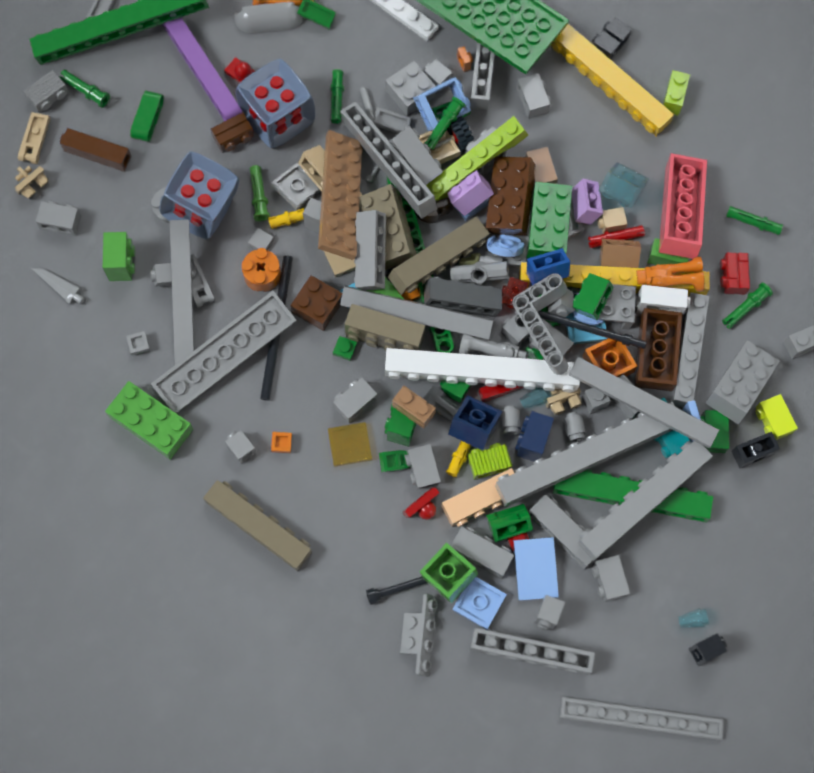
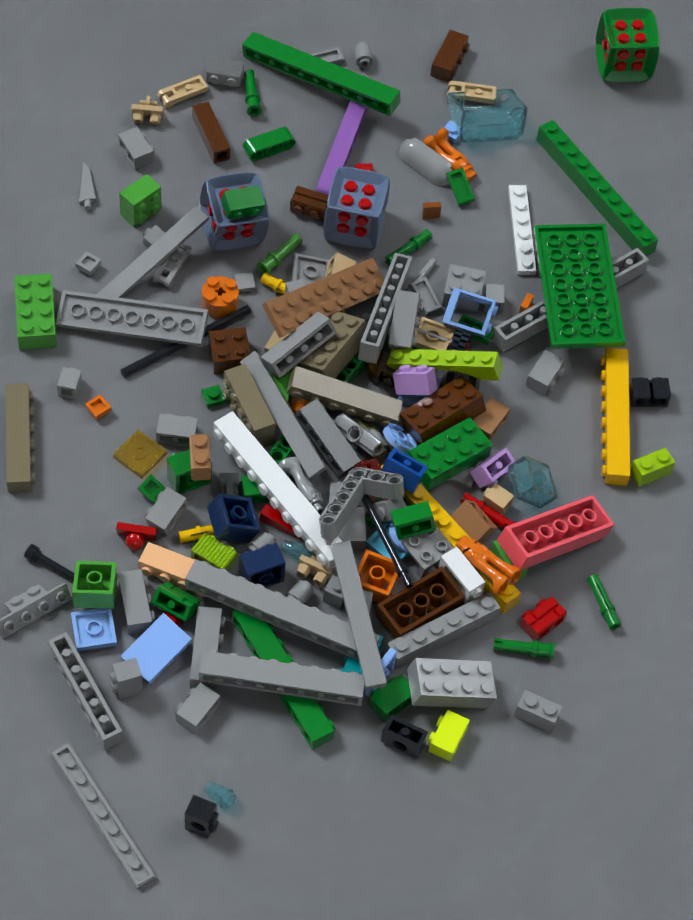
camera: 45 degrees right, 15 degrees down
(210, 184) = (242, 202): none -> green brick
(318, 51) = (431, 210): none -> dark orange tile
(449, 116) = (461, 320): green pin -> none

